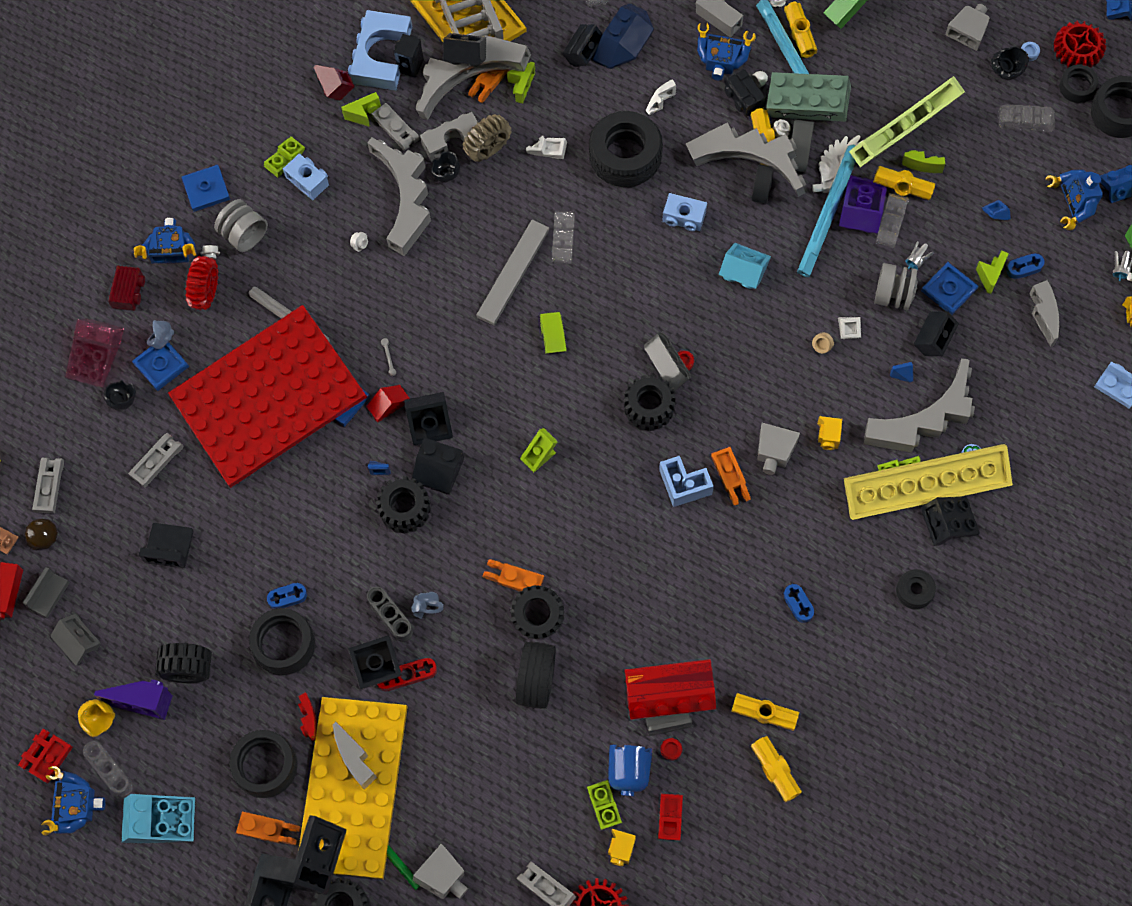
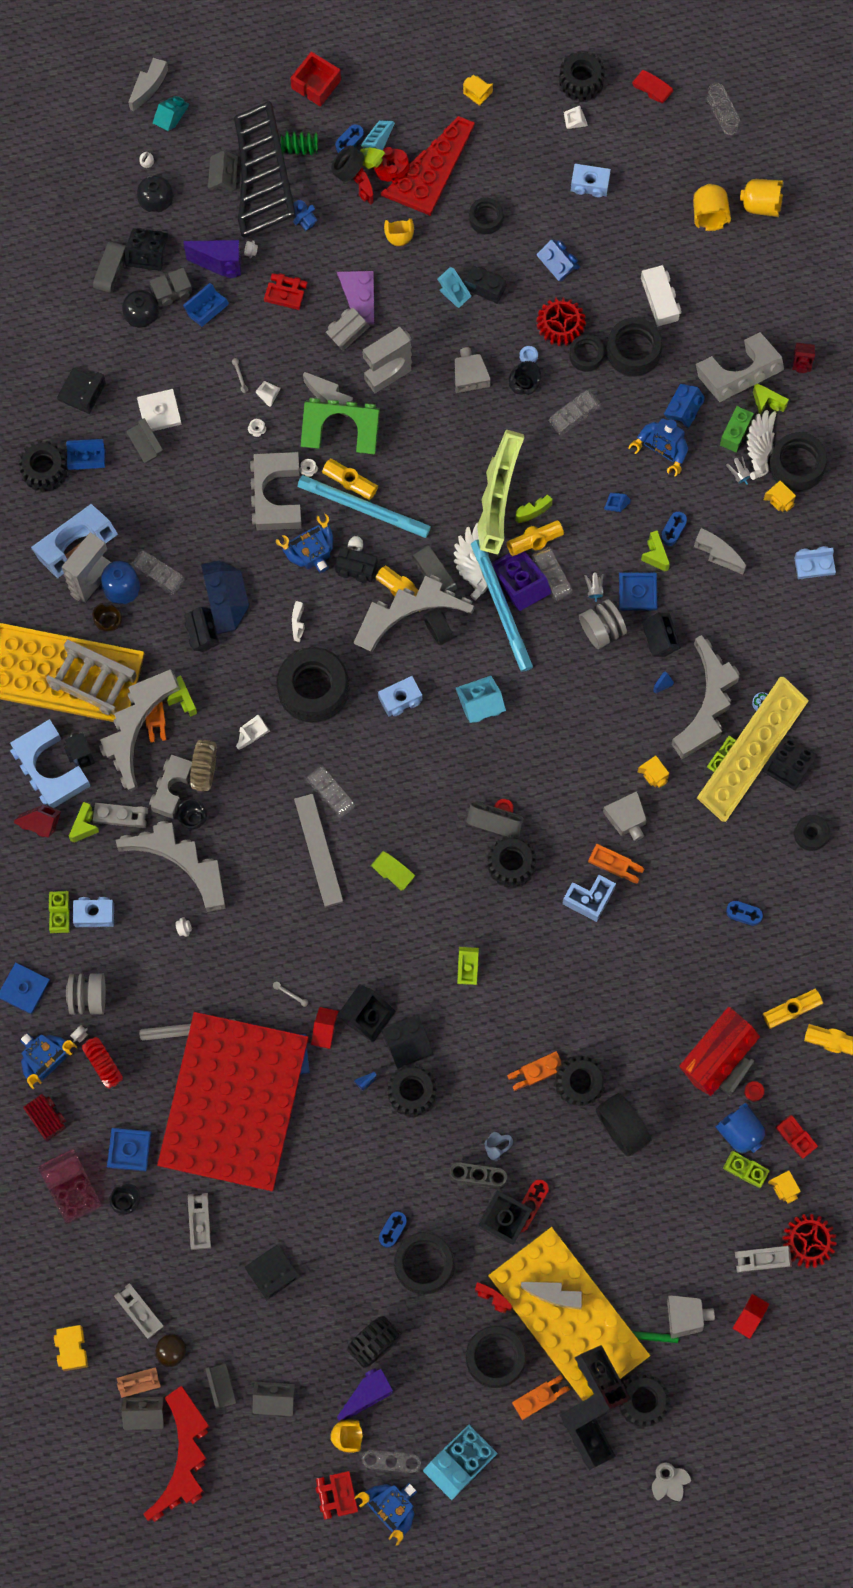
camera: 45 degrees left, 5 degrees up
(162, 334) = (111, 1125): sand blue piece -> none
(464, 49) = (127, 712): black brick -> none
(781, 127) = (408, 570): white plate -> none
(808, 96) = (409, 529): sand green brick -> none
(822, 342) = (588, 709): tan tile -> none
(849, 327) = (595, 681): white slope -> none

